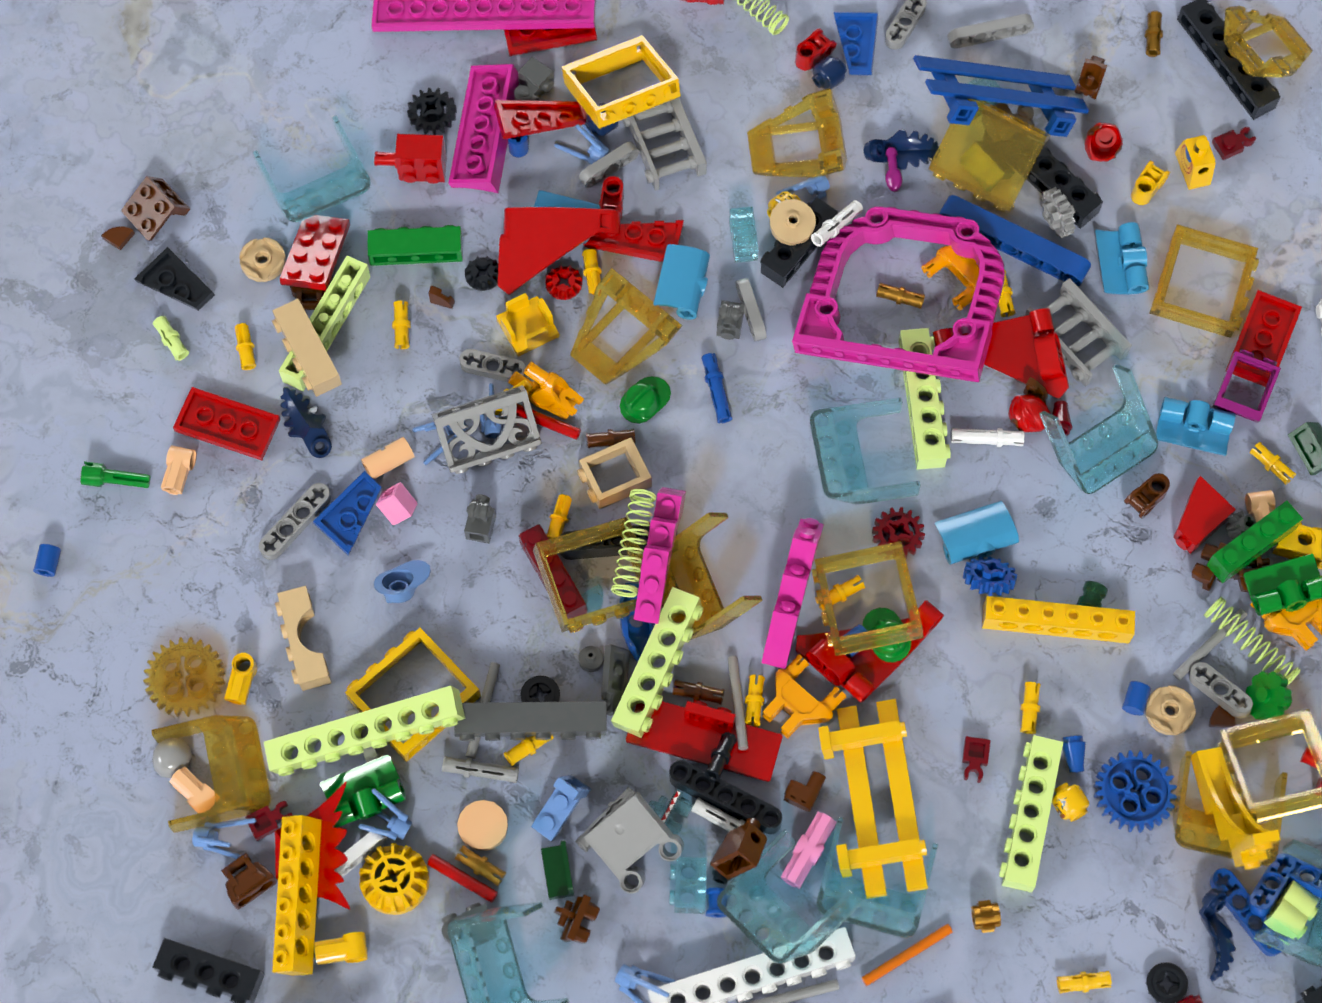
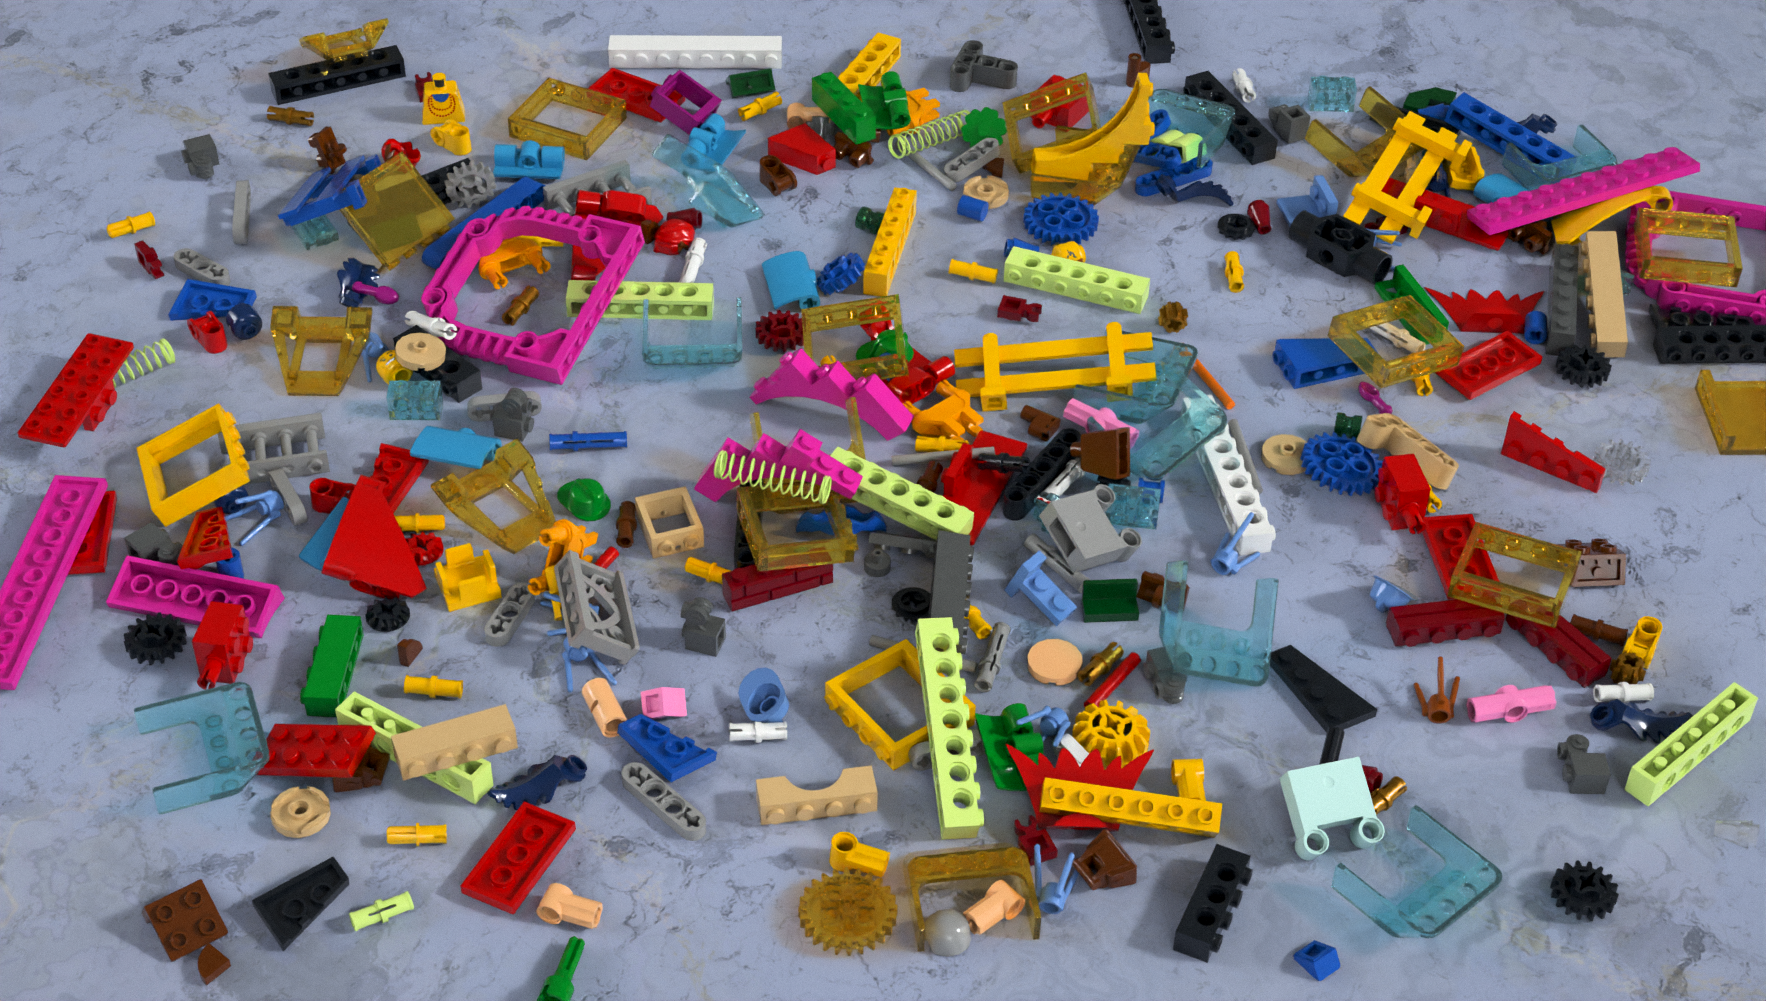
camera: 85 degrees left, 25 degrees down
(371, 572) = (757, 731): none -> white pin

